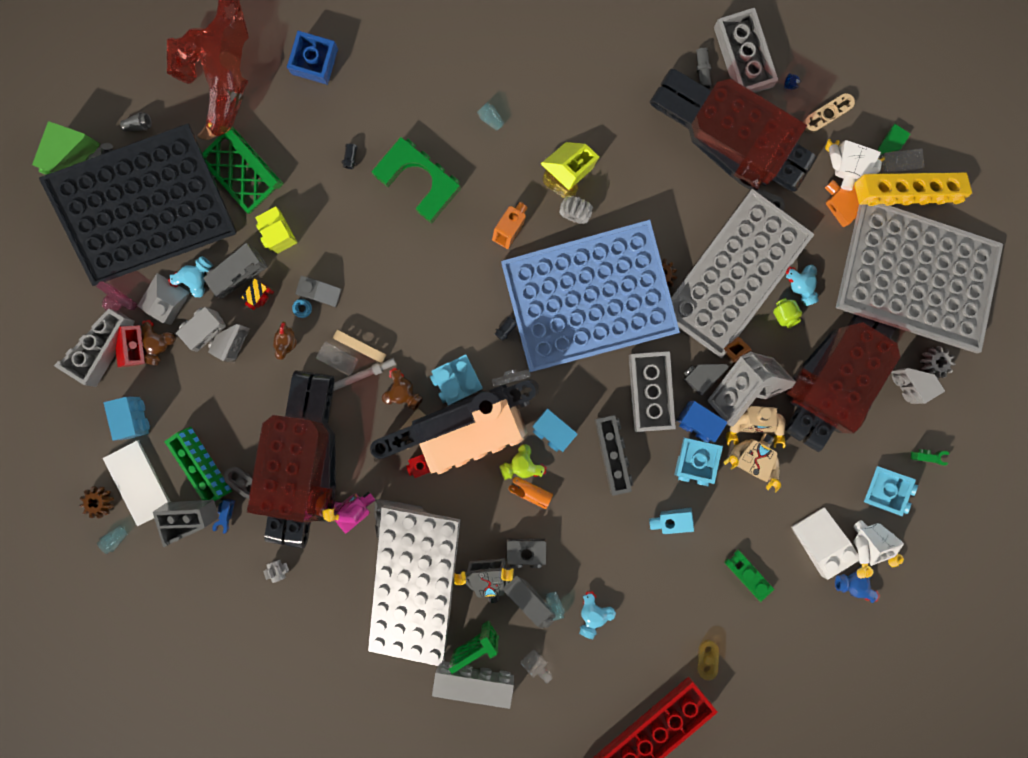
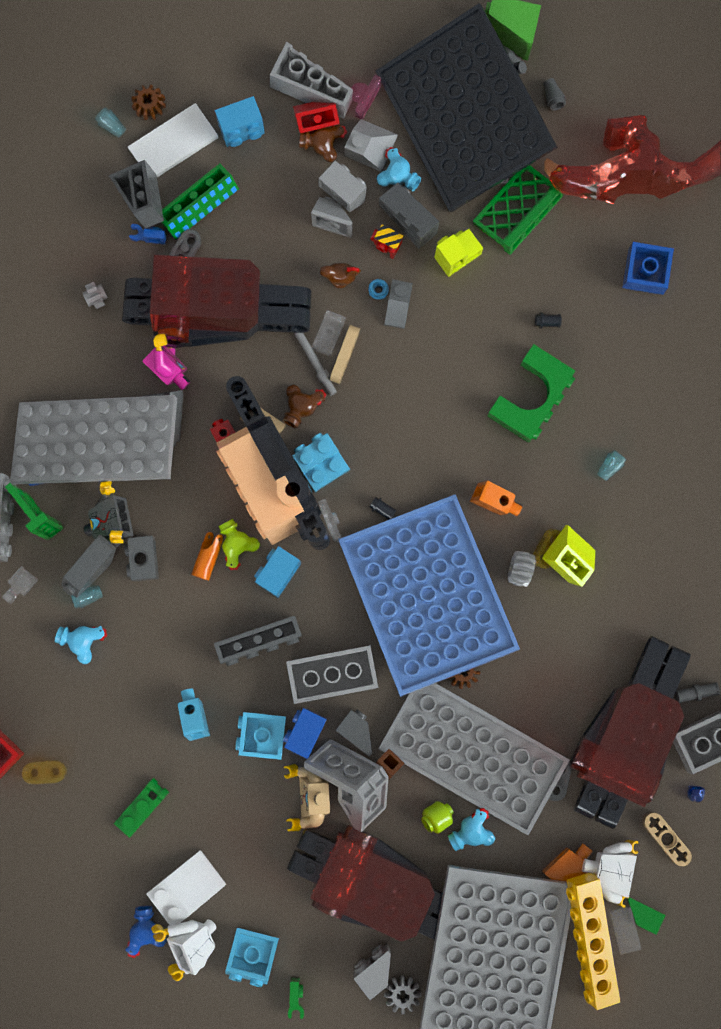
camera: 75 degrees right, 5 degrees down
(757, 460) = (270, 800): tan torso -> none

